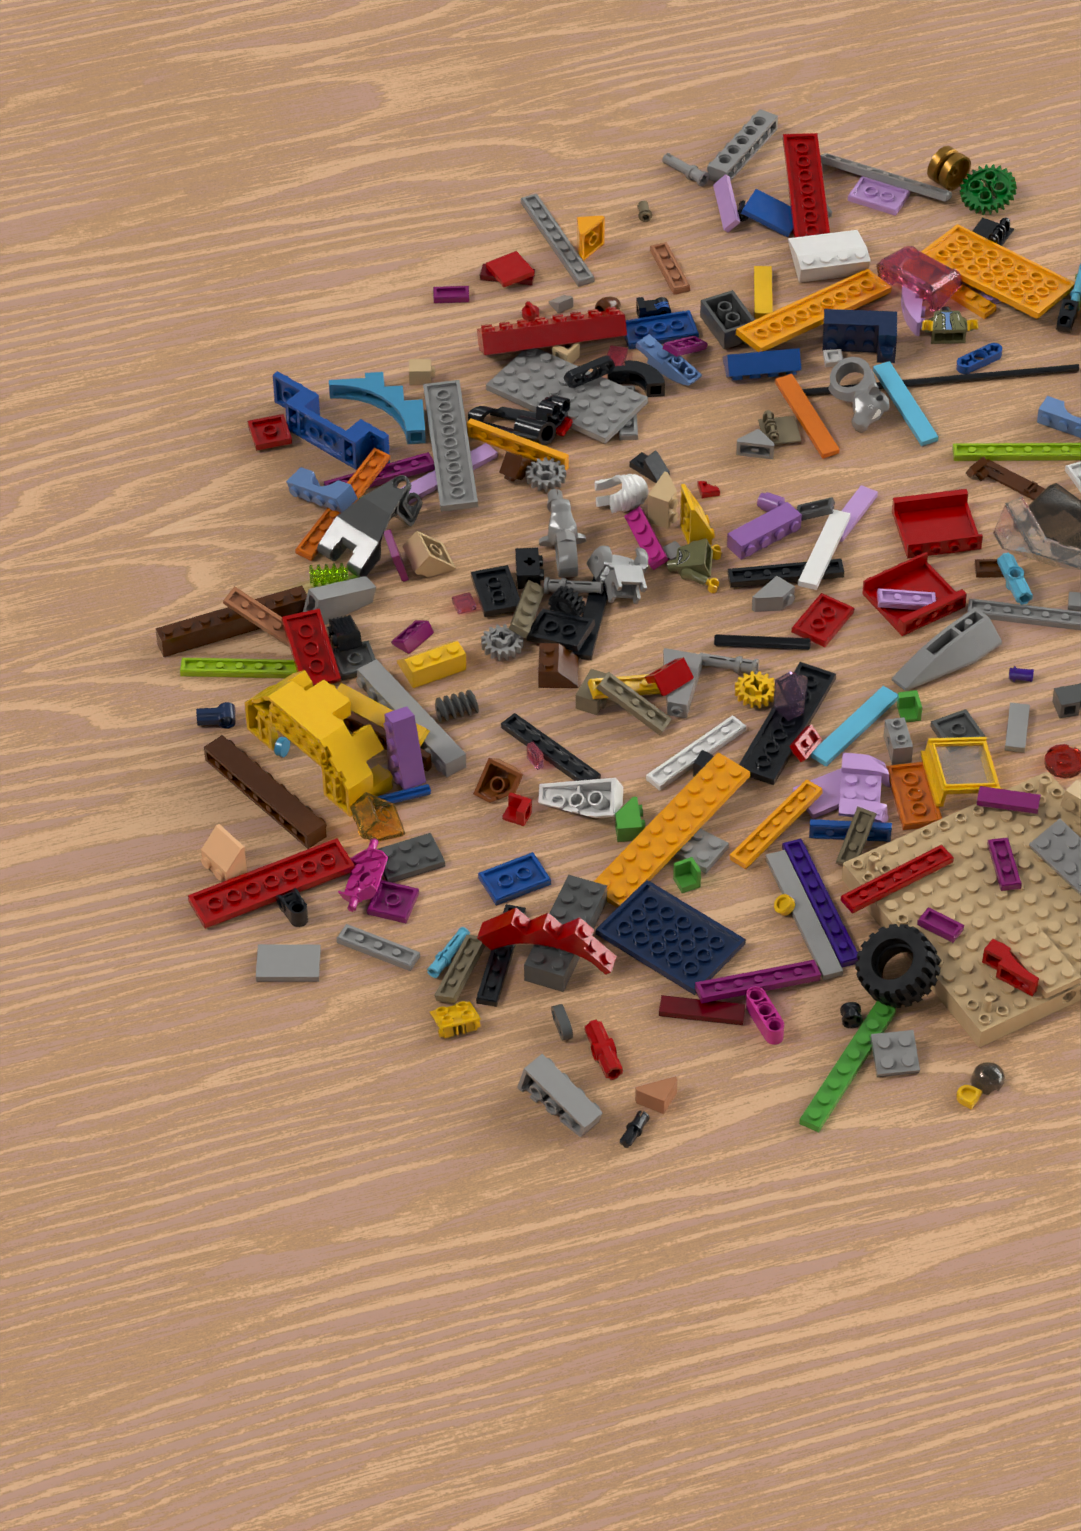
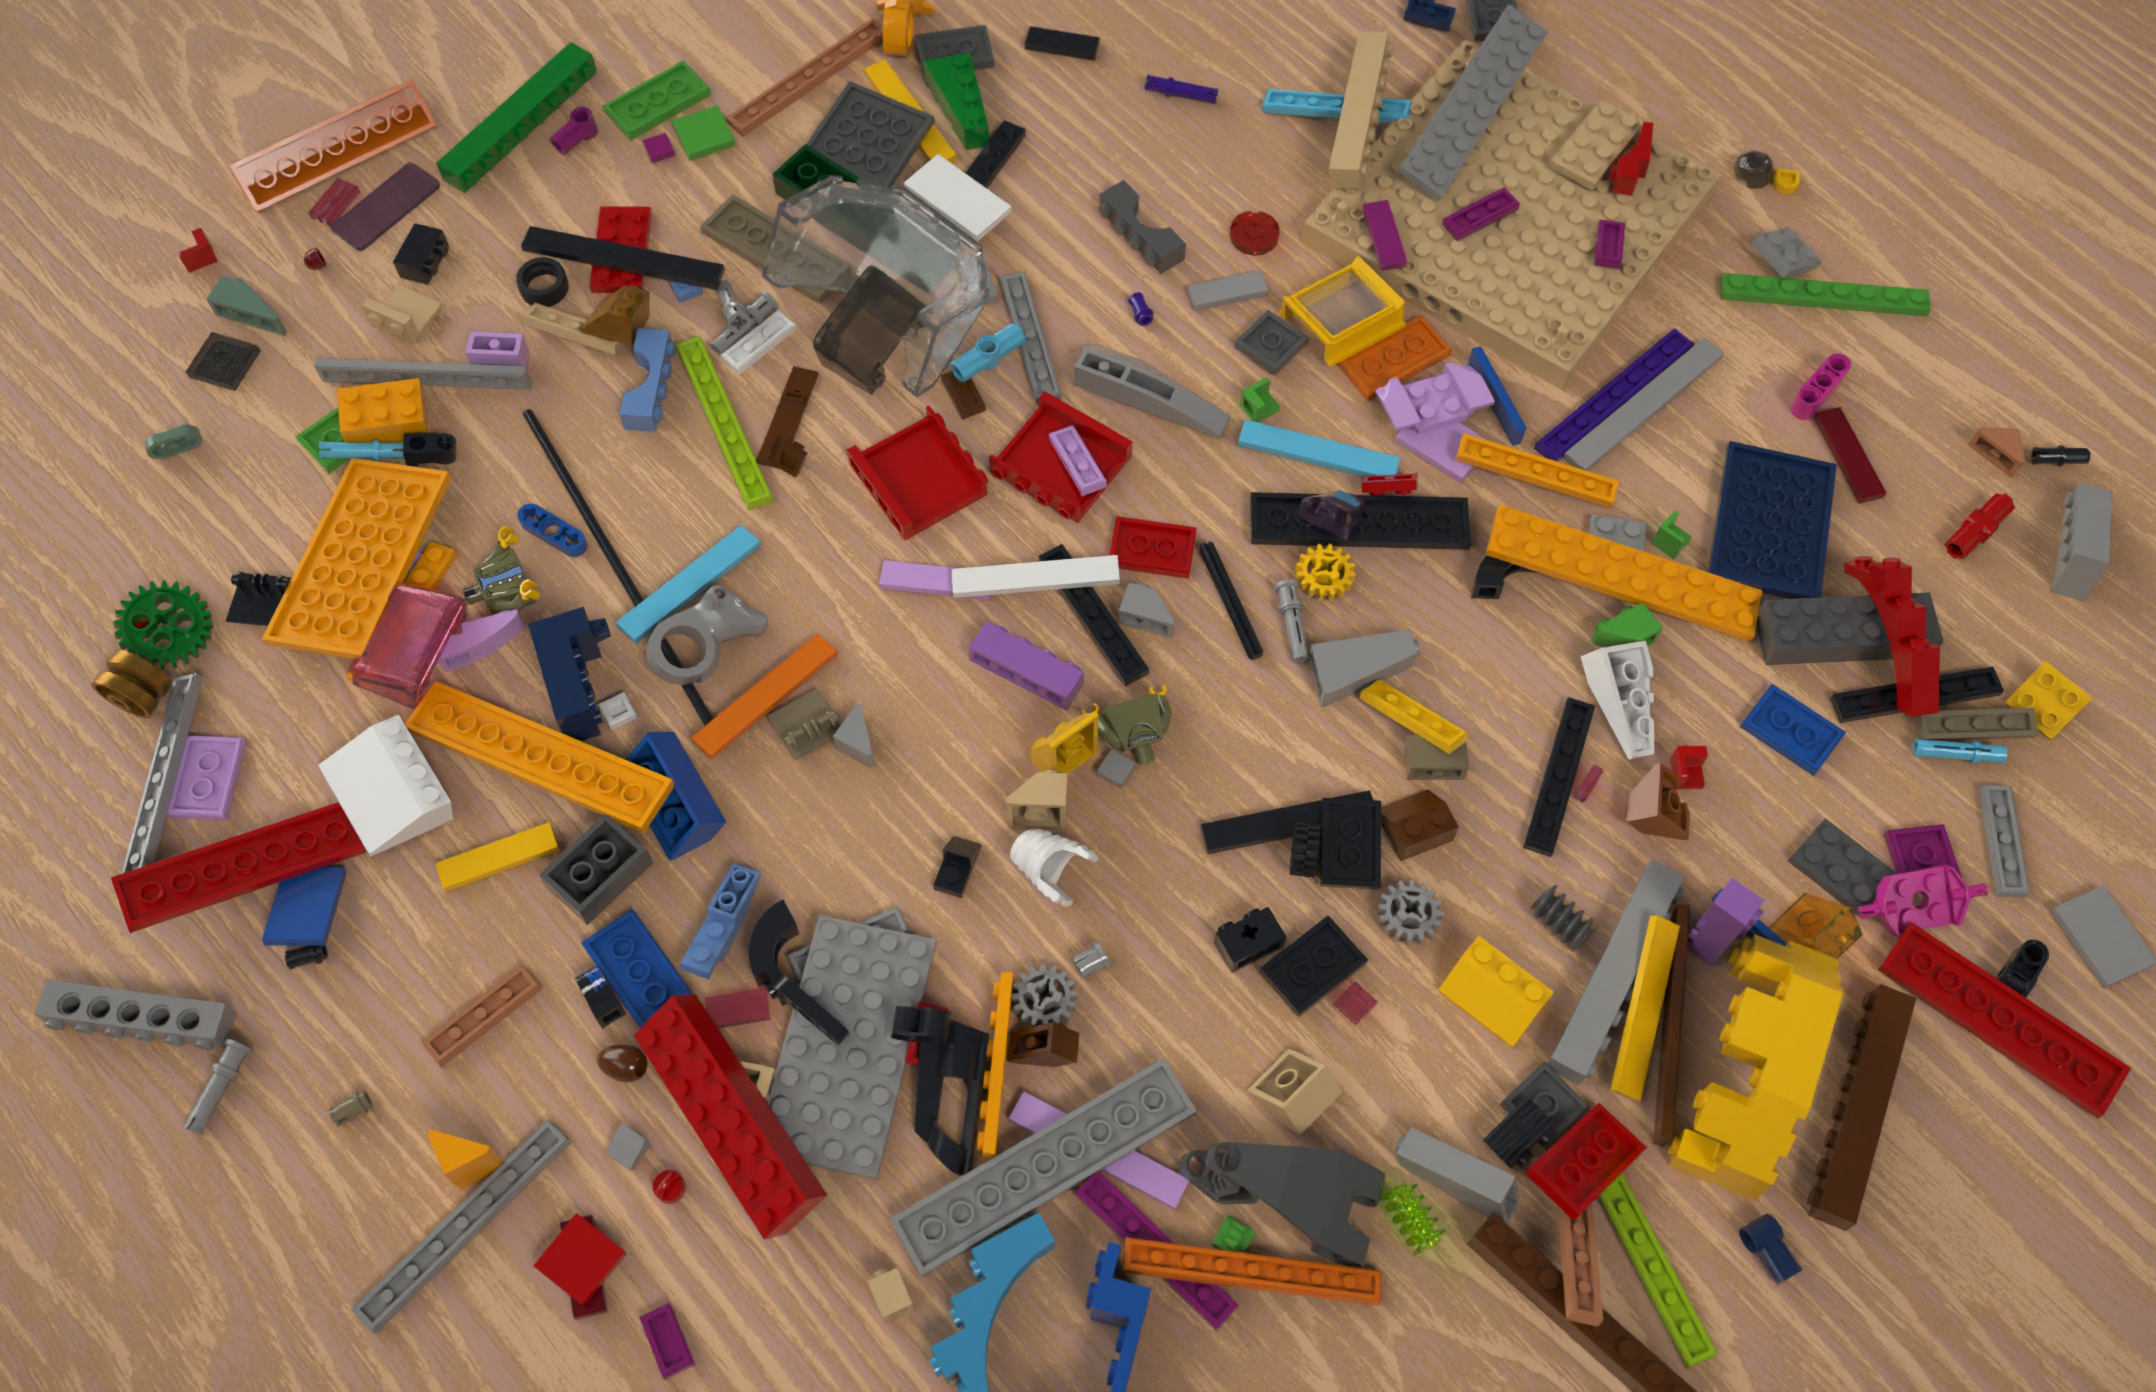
camera: 115 degrees left, 15 degrees up
(223, 855) = (2016, 1095): light nougat slope -> none
(335, 496) = (1244, 1351): medium blue arch -> none
(396, 556) = (1335, 1125): magenta tile -> none
(413, 636) = (1454, 1048): magenta slope -> none
(526, 609) = (1336, 902): dark tan plate -> none
(552, 585) = (1261, 874): light grey pin -> none
(562, 1022) = (1973, 583): dark grey beam -> none
(564, 536) = (1203, 892): light grey animal -> none
(619, 573) = (1210, 815): light grey piece -> none
(634, 703) = (1446, 690): dark tan plate -> none
(646, 537) = (1112, 806): dark pink plate -> none
(671, 676) = (1379, 662): red panel -> none
(684, 760) = (1462, 606): white tile -> none
(685, 346) = (683, 906): magenta tile -> none
(707, 490) = (968, 773): red tile -> none
(726, 203) = (295, 985): lavender tile -> none
(767, 979) = (1782, 408): magenta plate -> none
(769, 501) = (966, 677): medium lavender brick -> none
(784, 904) = (1649, 423): yellow tile -> none
(816, 508) = (951, 593): dark grey tile -> none
(851, 1015) = (1762, 307): black wheel -> none
(856, 835) = (1514, 378): dark tan tile -> none
(881, 949) = (1716, 257): black tyre -> none
(896, 879) = (1569, 305): red tile -> none
(898, 741) = (1327, 391): light grey brick -> none

